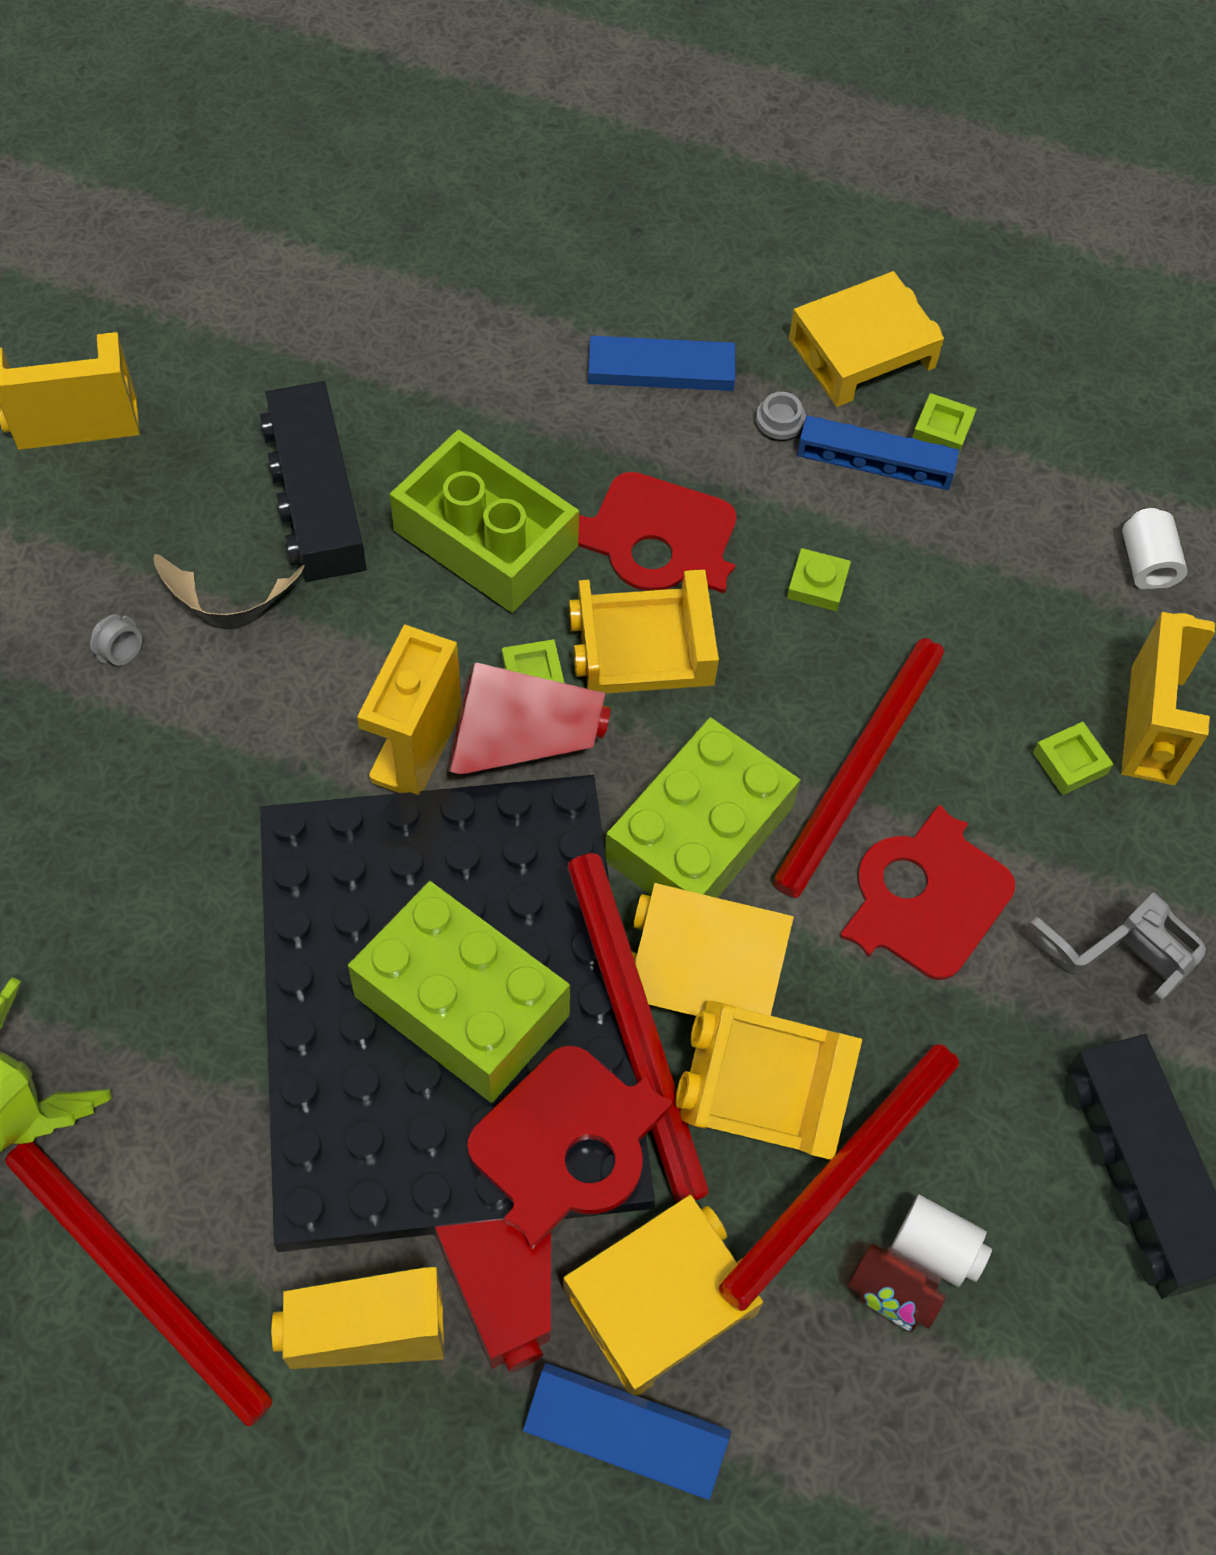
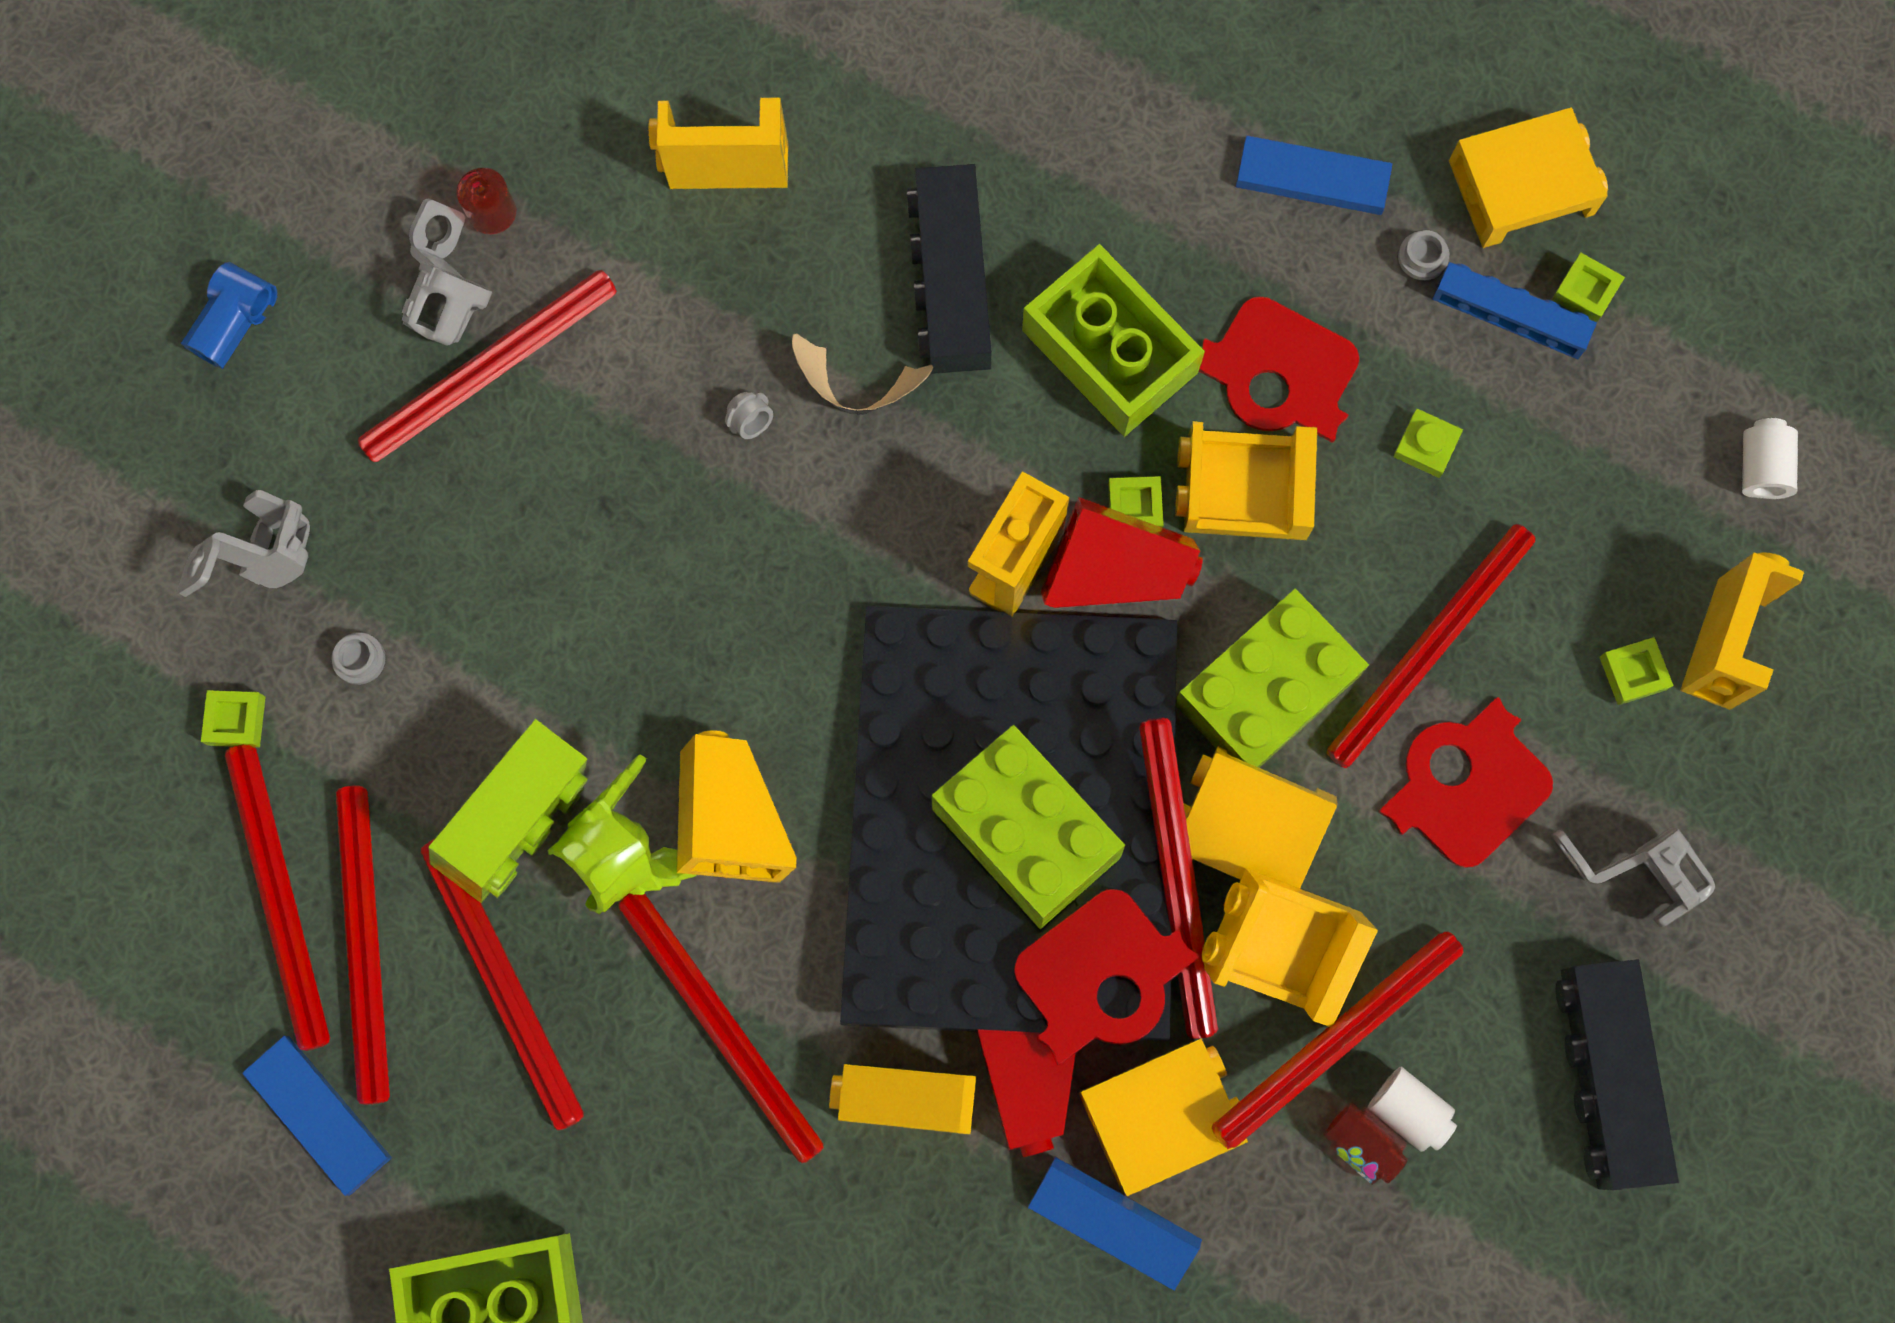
camera: 15 degrees right, 15 degrees up
(125, 1039) = (728, 814): none -> yellow slope

